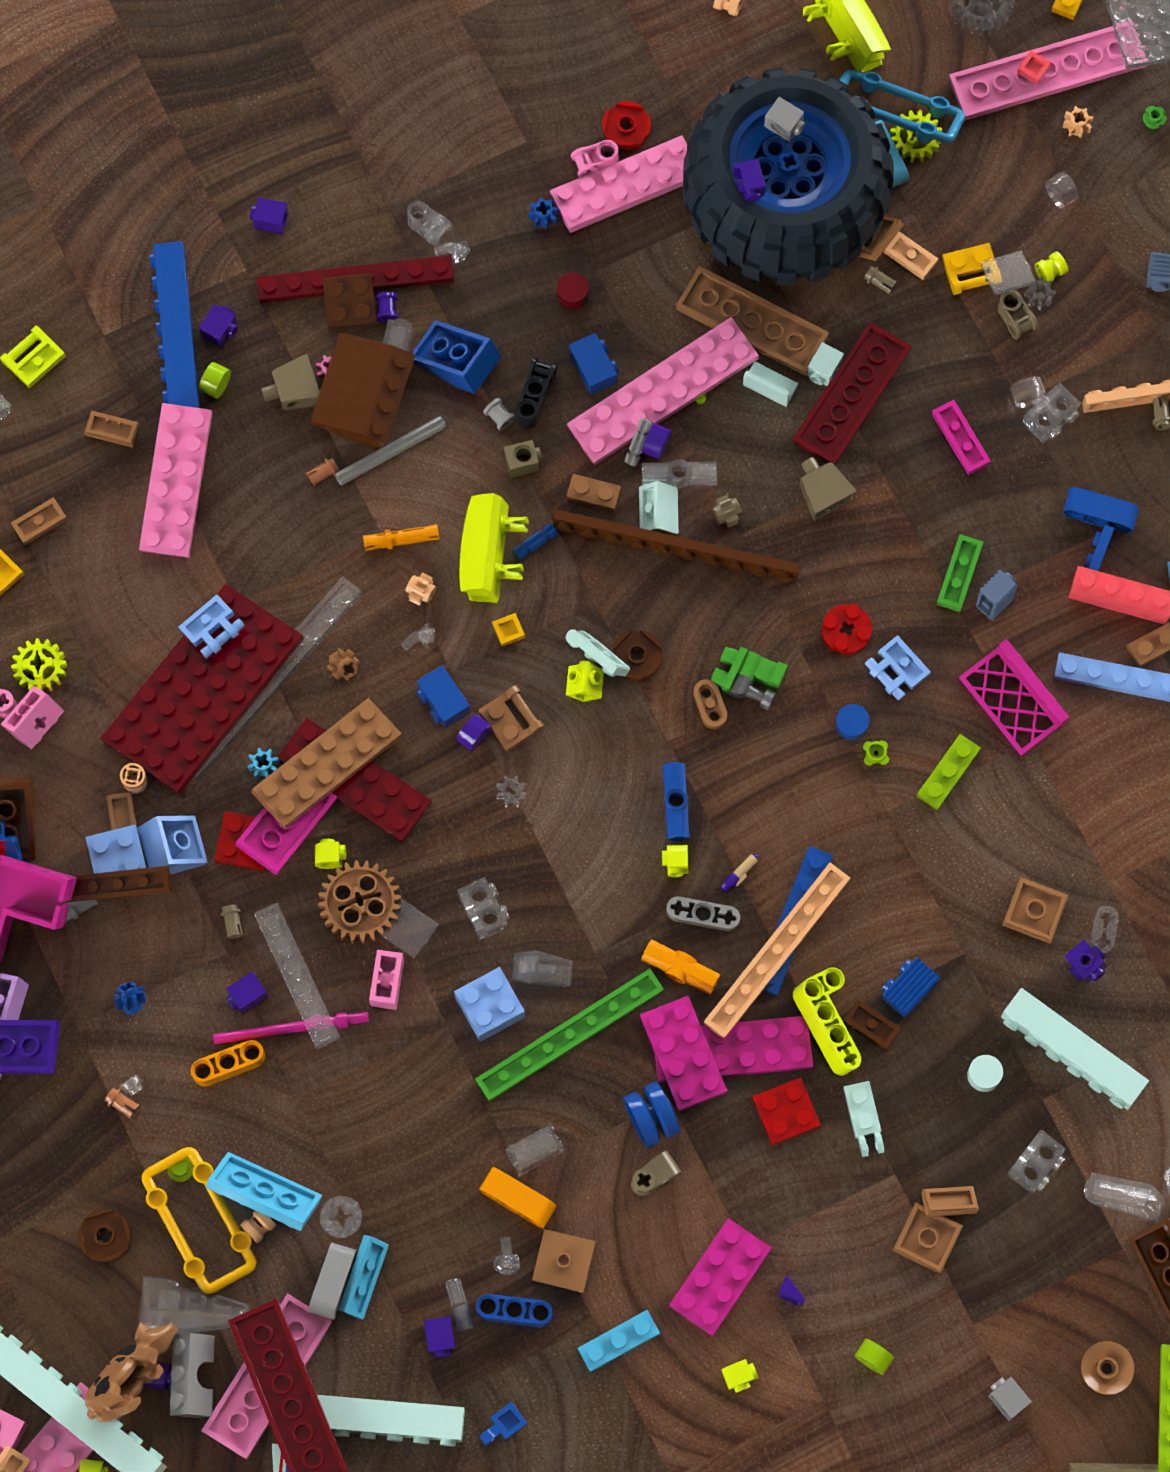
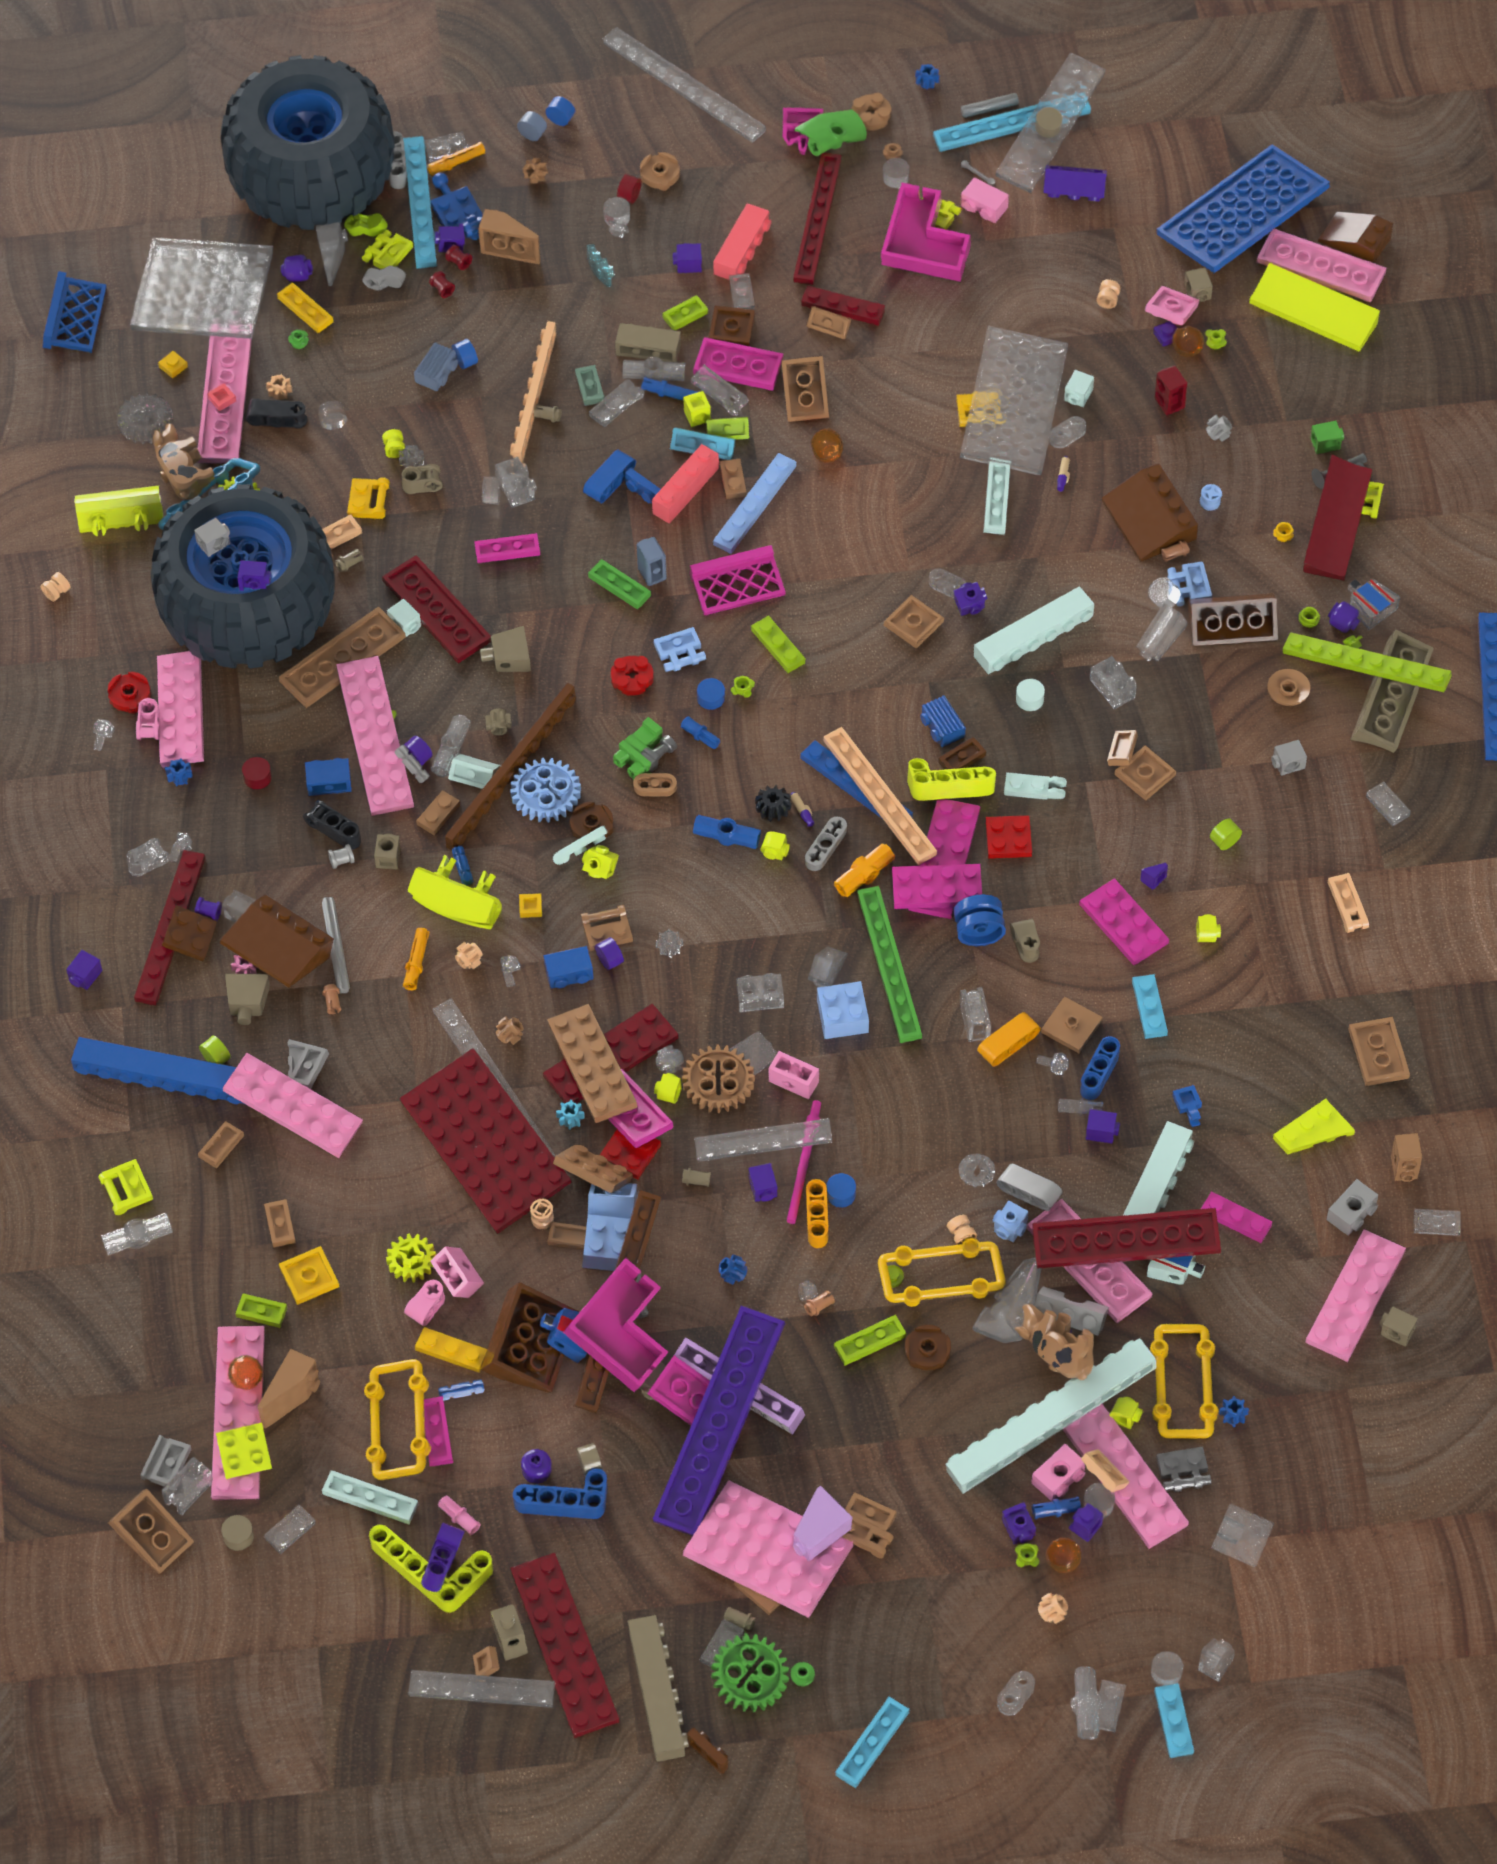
camera: 70 degrees left, 15 degrees down
(94, 1171) = (870, 1340): none -> lime plate
(200, 810) = (593, 1168): none -> medium nougat plate
(207, 621) = (430, 1114): light blue plate -> none
(219, 325) = (166, 1036): dark purple brick -> none
(234, 474) = (305, 1062): none -> light grey wing
(263, 1191) = (937, 1214): medium azure plate -> none
(267, 1079) = (841, 1190): none -> blue piece
(291, 1278) = (1010, 1221): none -> light blue brick
(363, 842) = (669, 1059): none -> clear gear
(363, 1277) = (1019, 1157): medium azure plate -> none
(456, 355) = (275, 870): blue slope -> none
(567, 118) = (103, 729): none -> clear plate
(638, 585) = (545, 790): none -> light blue gear
(721, 835) = (773, 803): none -> black gear
(770, 384) = (402, 662): light aqua panel -> none
(796, 728) = (700, 732): none -> blue axle
(925, 57) = (178, 461): none -> medium nougat animal
(1008, 272) = (386, 469): clear piece -> none
(1042, 133) = (276, 413): none -> black piece

